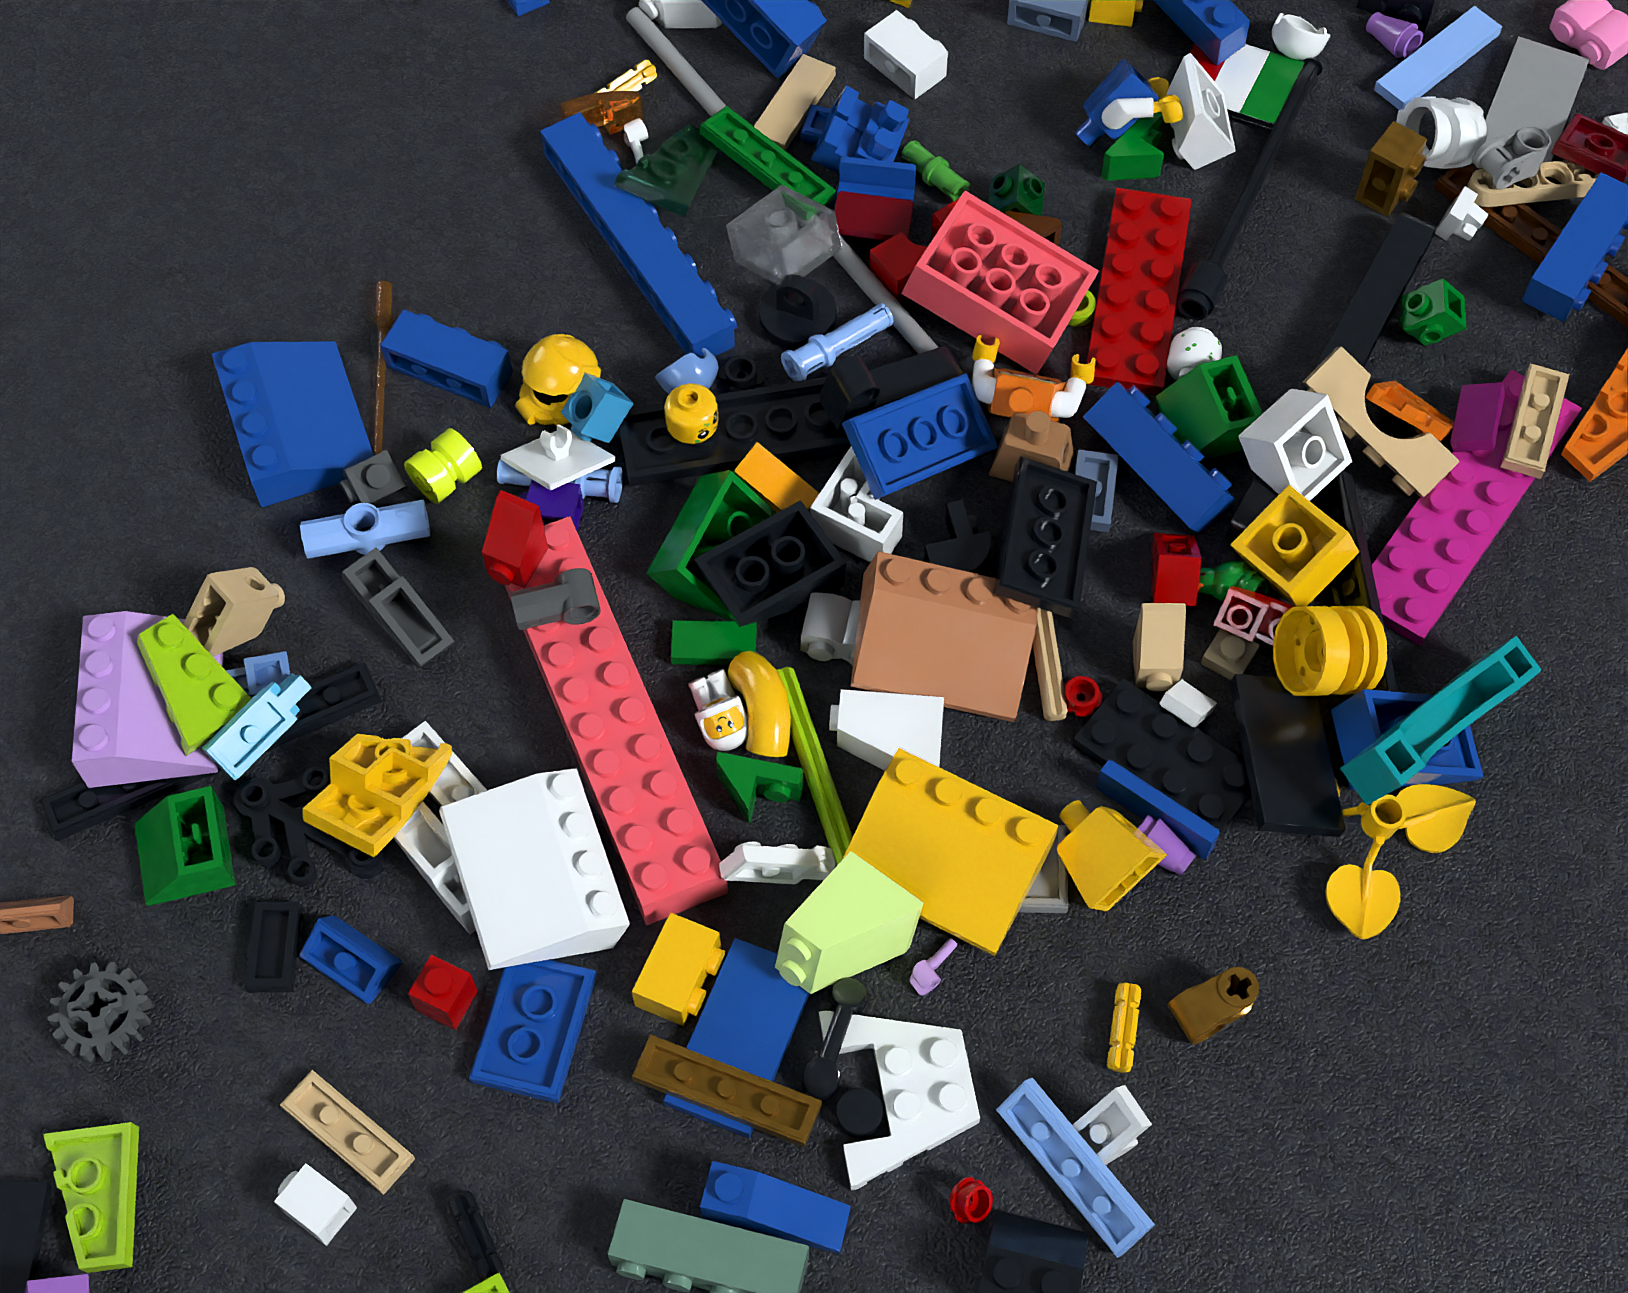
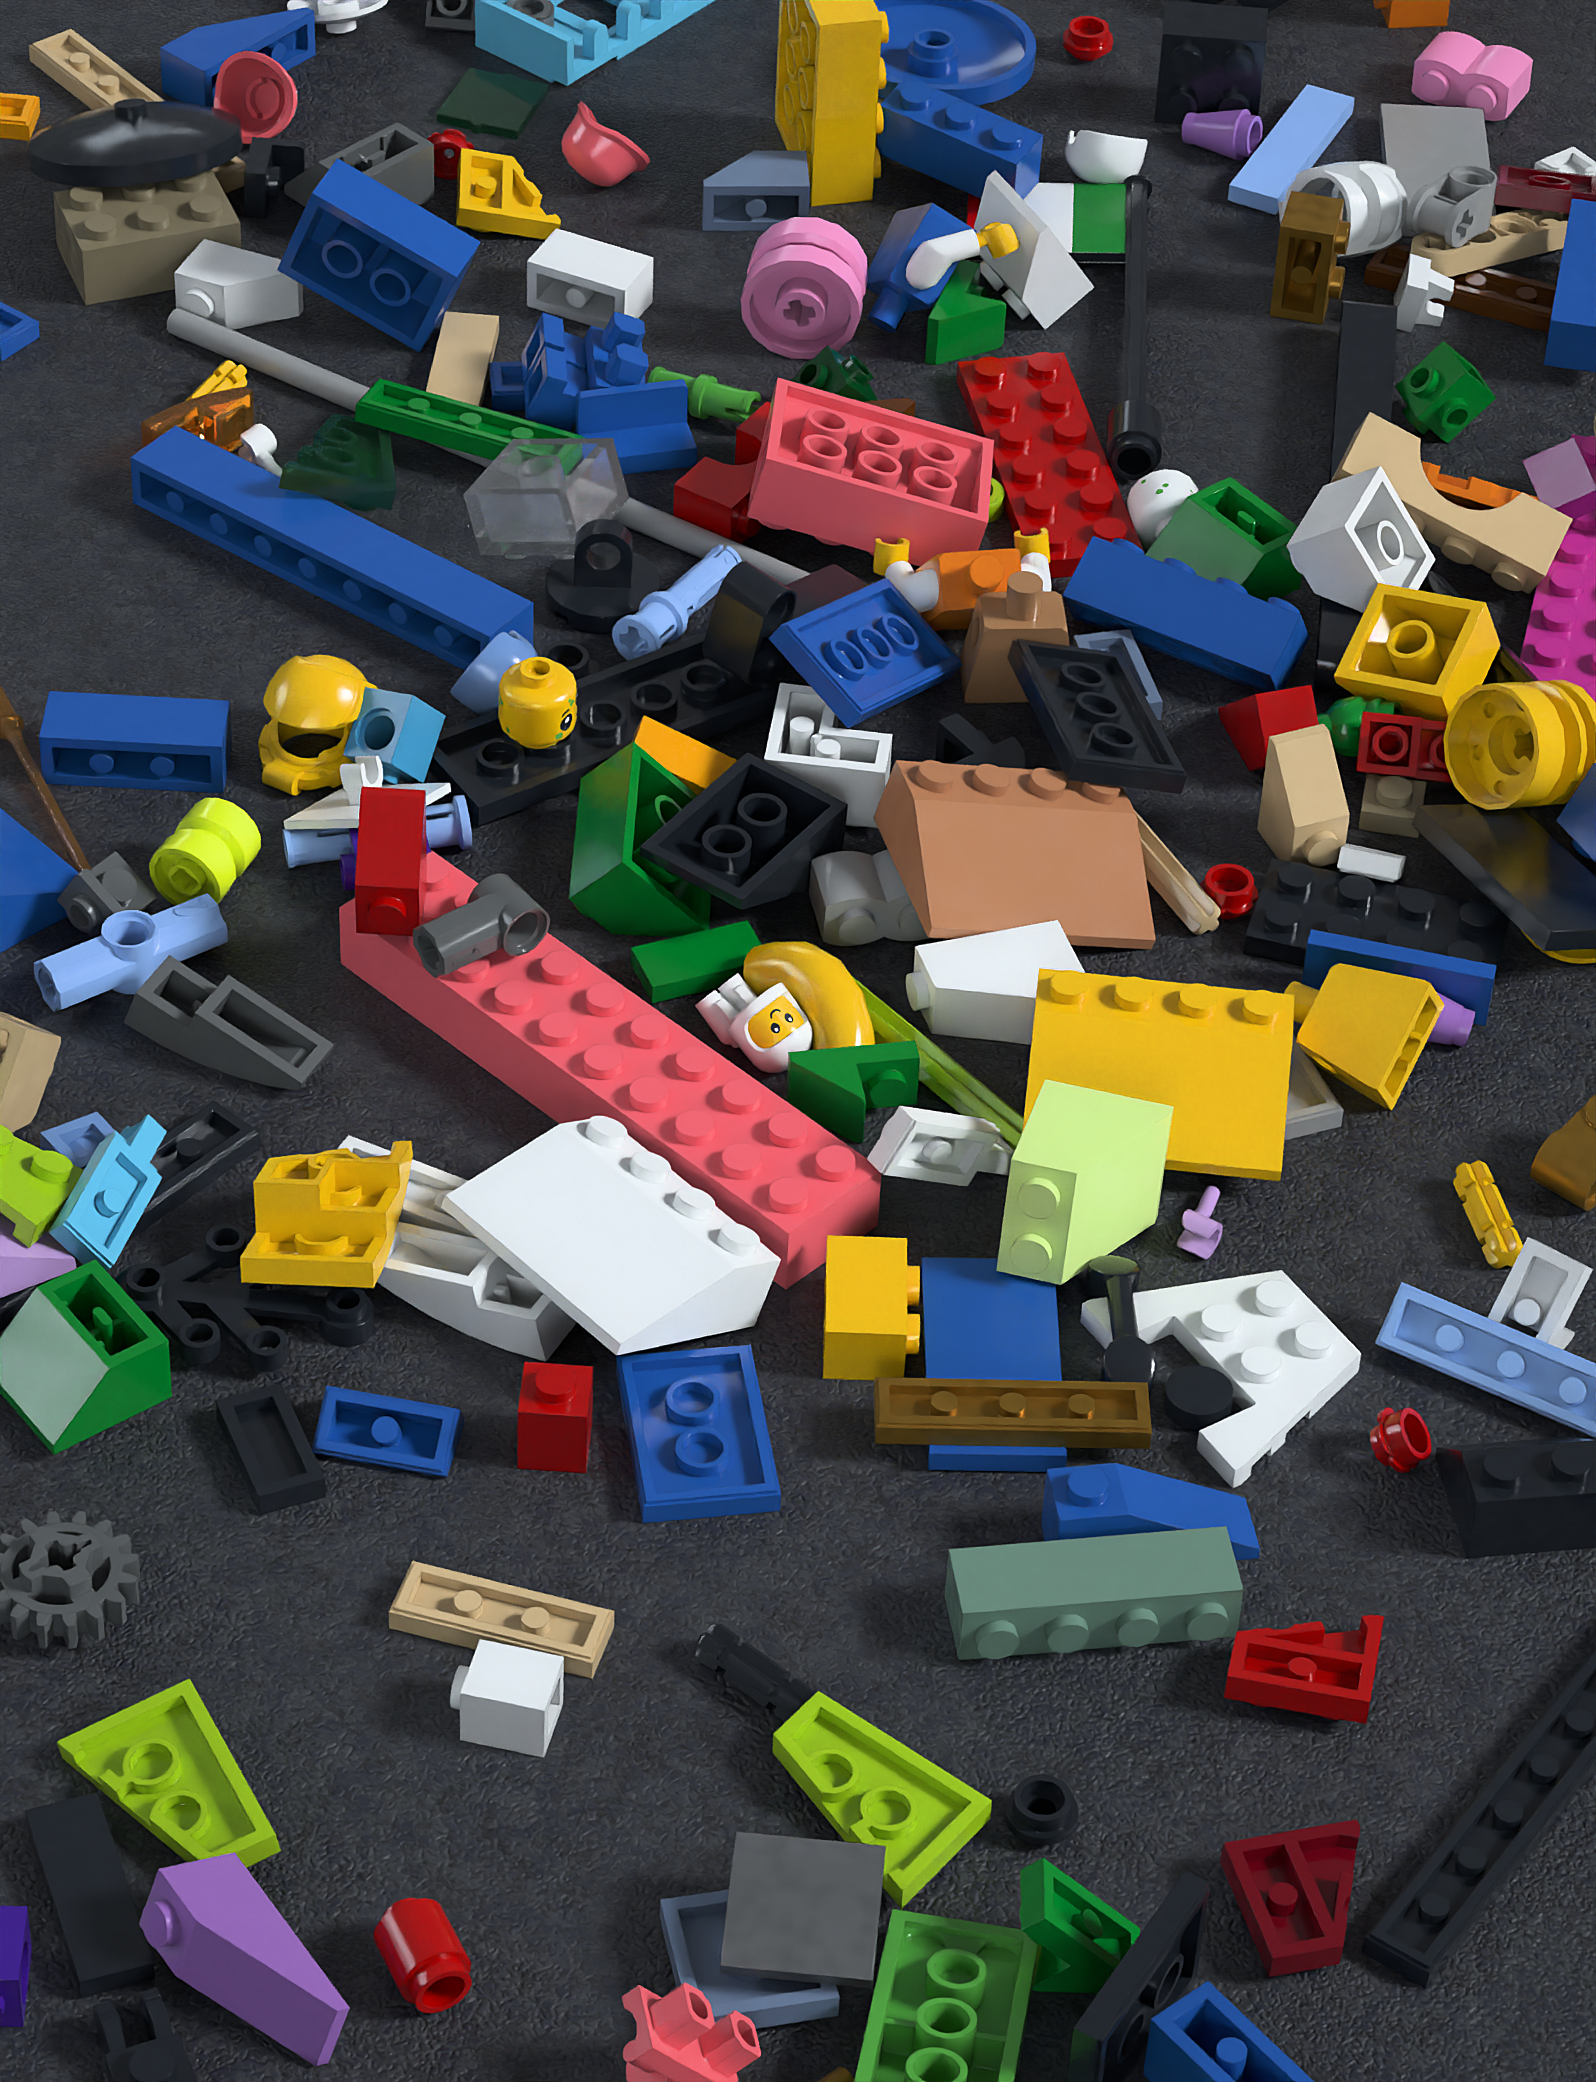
camera: 25 degrees left, 20 degrees down
(872, 215) = (658, 453): dark red slope -> none
(1033, 105) = (804, 287): none -> bright pink wheel

